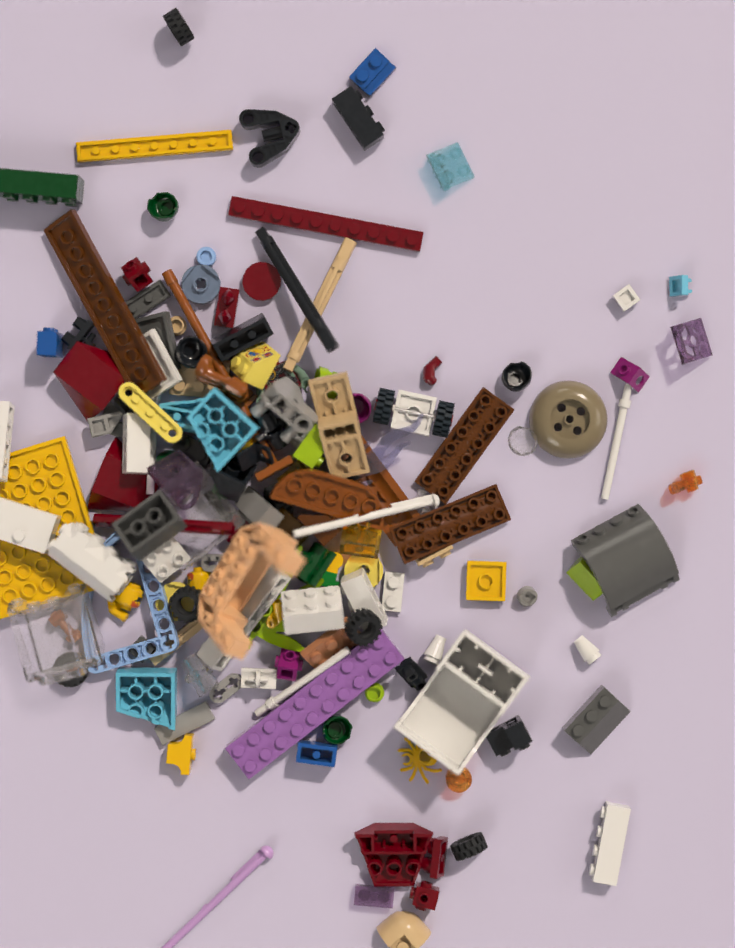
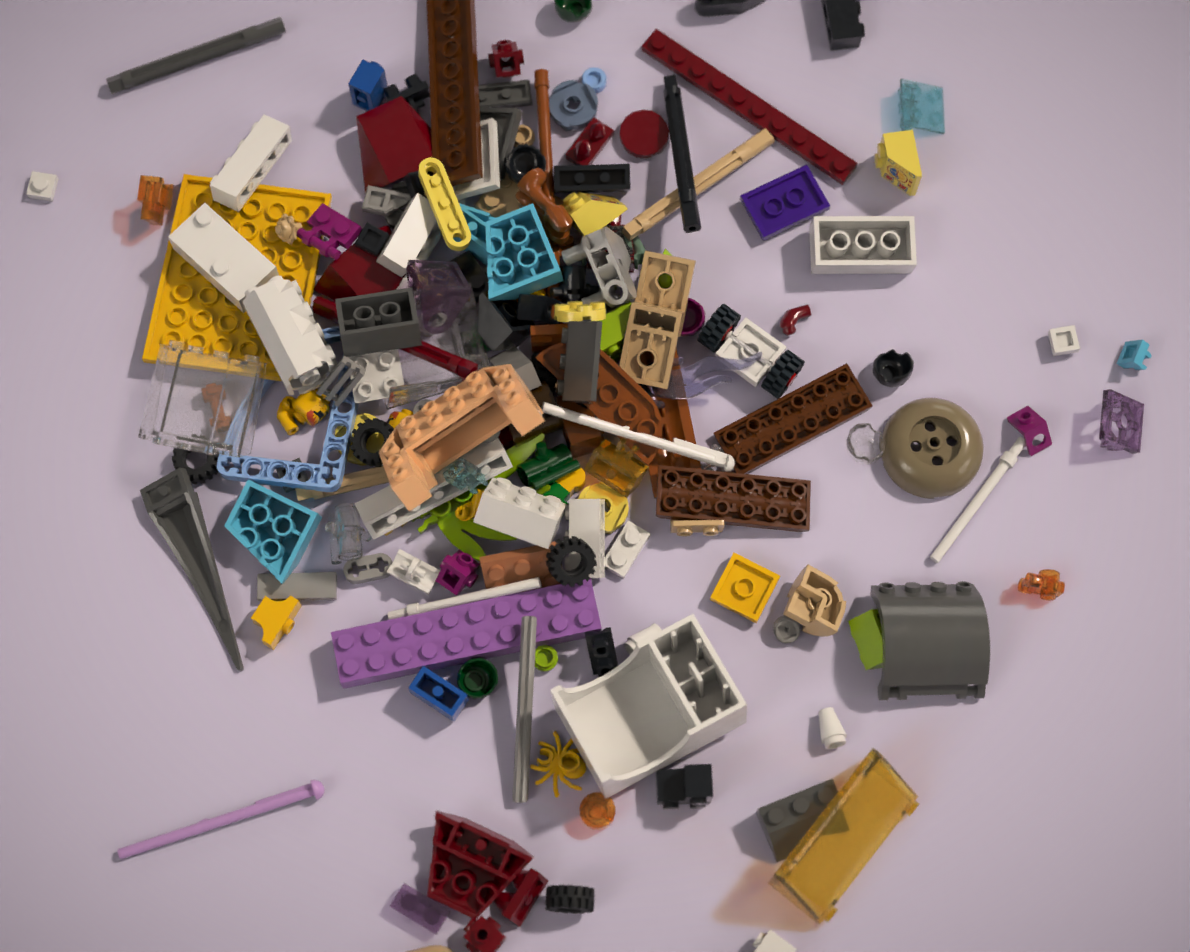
camera: 25 degrees right, 15 degrees down
(48, 480) = (287, 228): none -> tan plant
(78, 461) = (333, 226): none -> magenta plate
(84, 718) = (180, 520): none -> dark grey plate
(111, 460) = (372, 240): none -> black tile
(145, 576) = (331, 394): none -> light grey tile
(262, 605) = (465, 474): none -> clear light blue plate
(285, 451) = (578, 312): none -> light yellow plate
(304, 491) = (580, 361): none -> dark grey slope
(379, 736) = (524, 709): none -> light grey axle
(385, 287) = (784, 202): none -> dark purple plate
(453, 219) = (899, 160): none -> light yellow slope
(455, 295) = (862, 244): none -> white brick
(539, 570) = (815, 602): none -> tan brick
(630, 721) = (844, 837): none -> clear yellow windscreen

